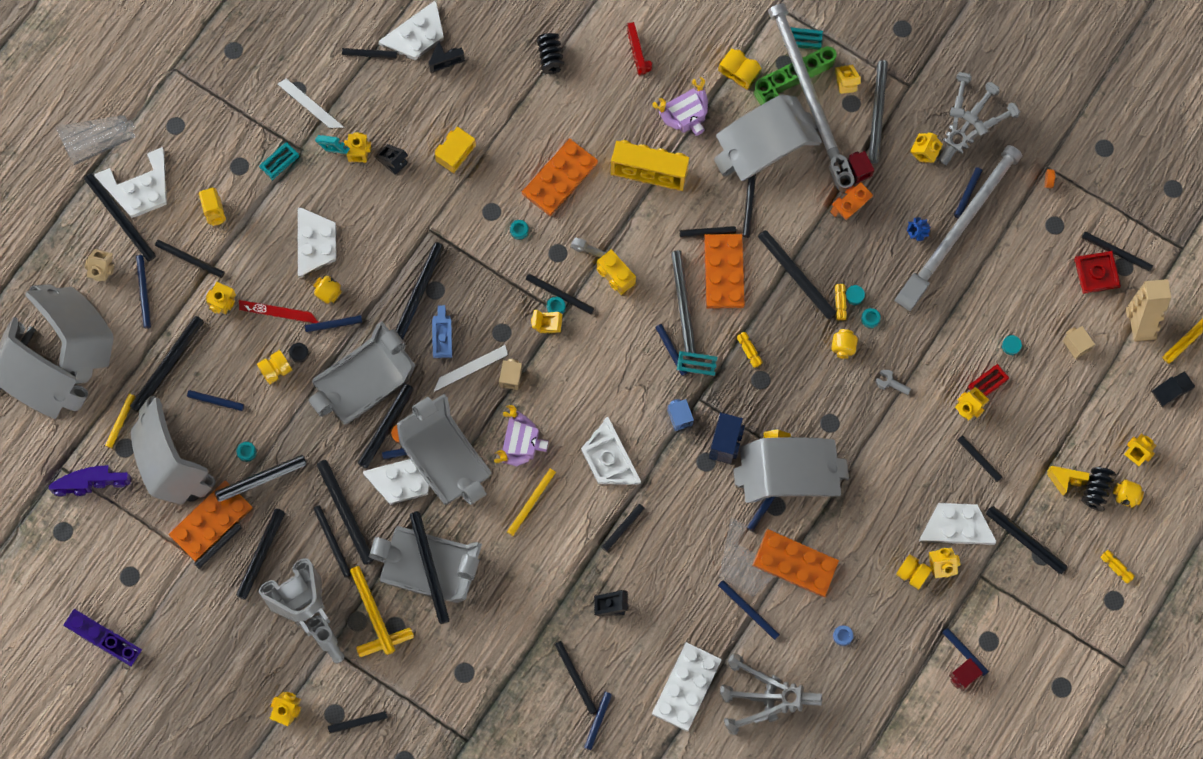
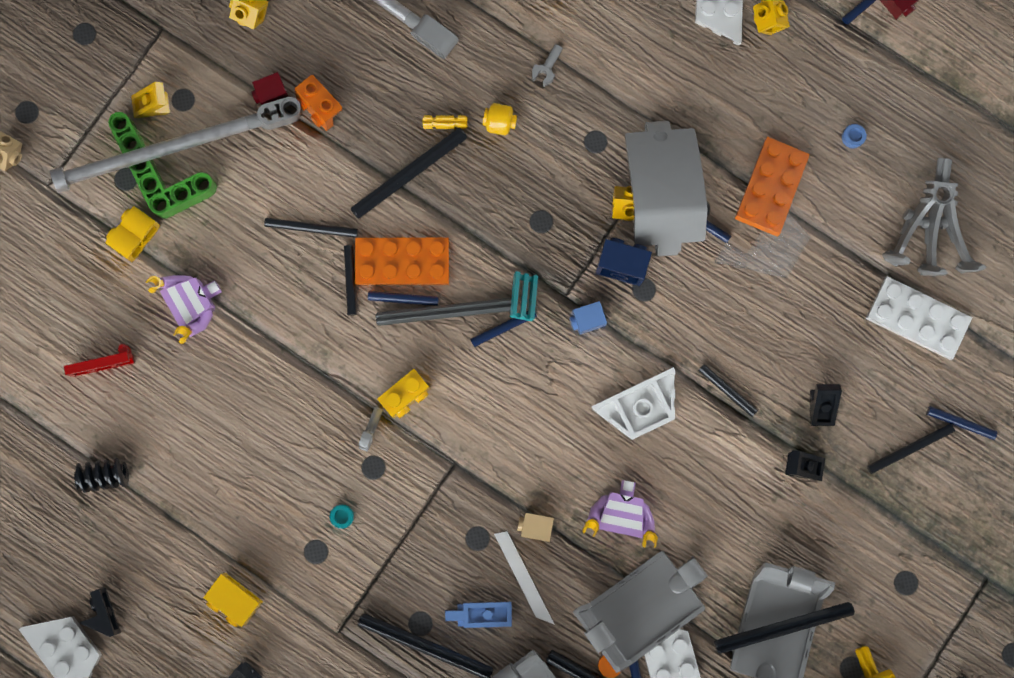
camera: 90 degrees left, 10 degrees up
(531, 502) = (696, 501): yellow bar -> none
(546, 322) = (467, 481): yellow bracket -> none
(556, 304) = (445, 470): teal tile -> none
(559, 177) = (272, 464): orange plate -> none
(559, 293) = (428, 465): black bar -> none
(560, 587) = (805, 465): none -> black slope
(649, 165) = (263, 348): yellow brick -> none
(693, 272) = (403, 298): none -> dark blue bar
(749, 349) = (504, 233): yellow axle -> none
(749, 610) = (825, 243): dark blue bar -> none
(765, 136) = (232, 201): light grey panel -> none
(810, 37) = (85, 147): teal tile -> none
(855, 295) = (436, 104): teal tile -> none
(870, 318) = (465, 87): teal tile -> none
(878, 108) = (195, 66): dark grey axle -> none
(913, 571) = (783, 47): yellow wheel -> none
(918, 229) = (354, 24): blue gear -> none

